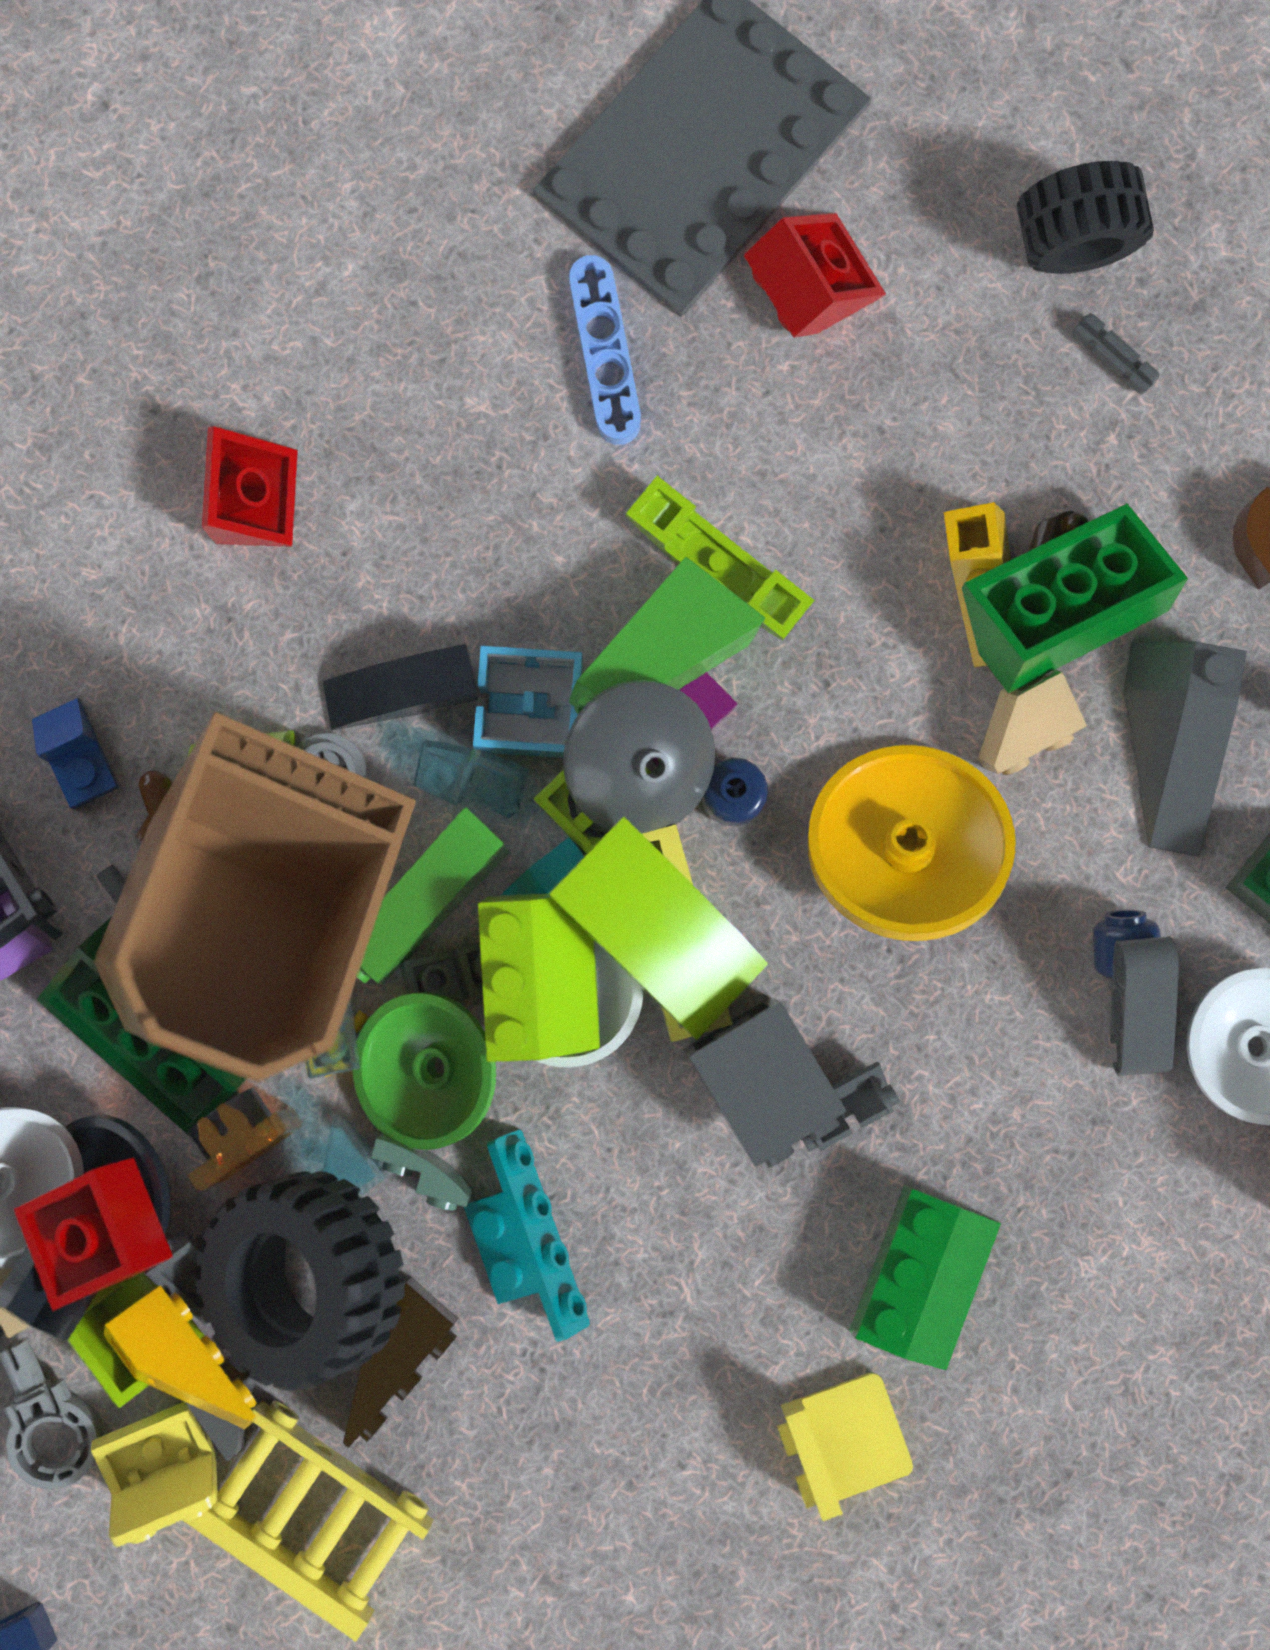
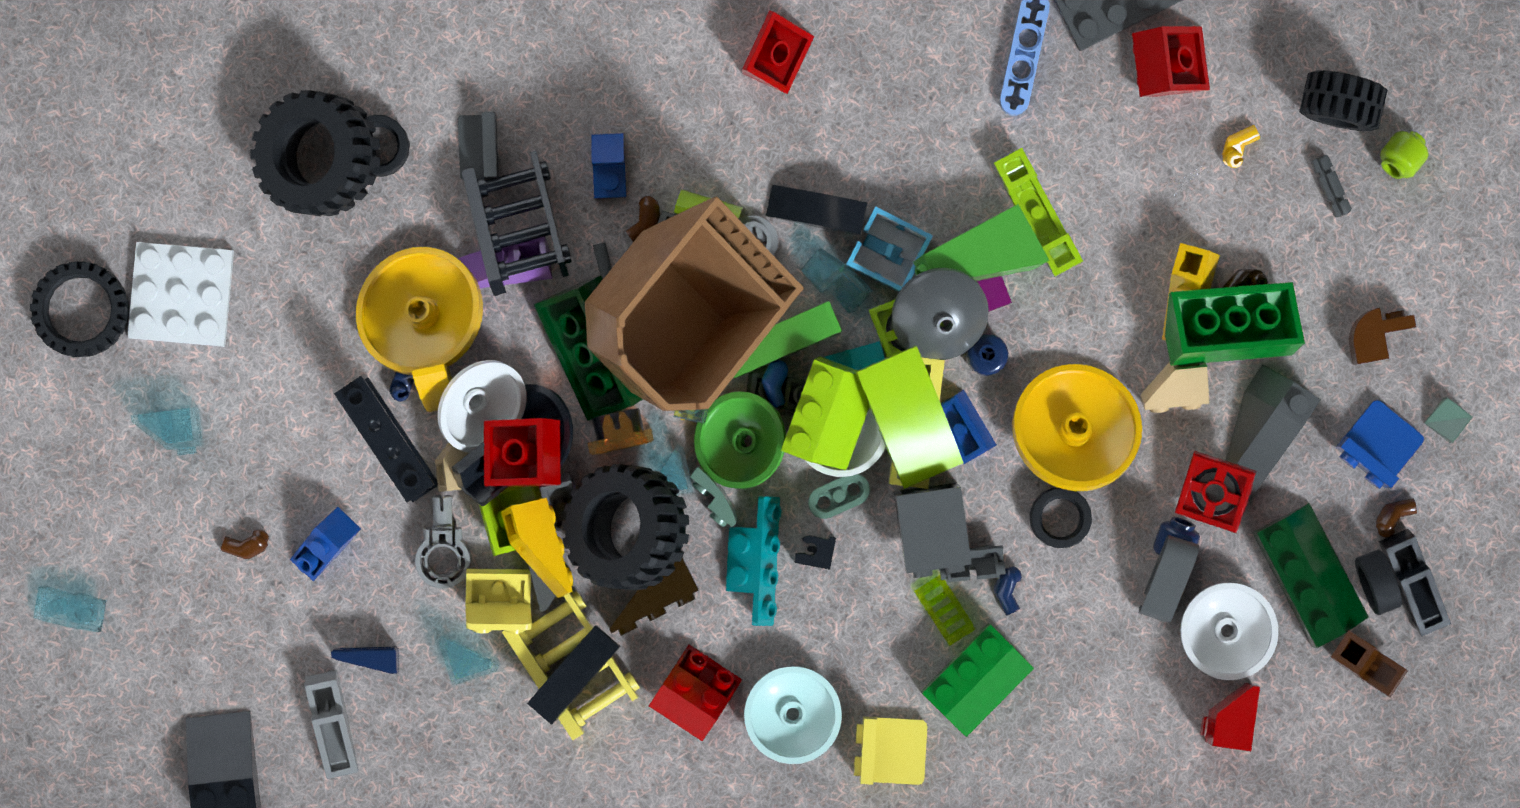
camera: 20 degrees right, 5 degrees up
(144, 1585) = (464, 663): none -> clear light blue slope
(313, 1543) = (573, 675): none -> black slope
(437, 962) = (773, 381): none -> blue arm
(514, 1480) = (695, 692): none -> red slope
(608, 1092) = (838, 496): none -> sand green plate
(614, 1184) = (822, 552): none -> black hinge
(680, 1492) = (796, 739): none -> light aqua dish
(751, 910) = (967, 427): none -> blue slope
(870, 1219) = (959, 633): none -> clear neon green slope
(907, 1123) = (1004, 588): none -> dark blue arm
(956, 353) = (1235, 146): none -> yellow arm
(982, 984) = (1084, 514): none -> black tyre
(1154, 847) = (1216, 490): none -> red piece
(1199, 266) = (1404, 154): none -> lime head

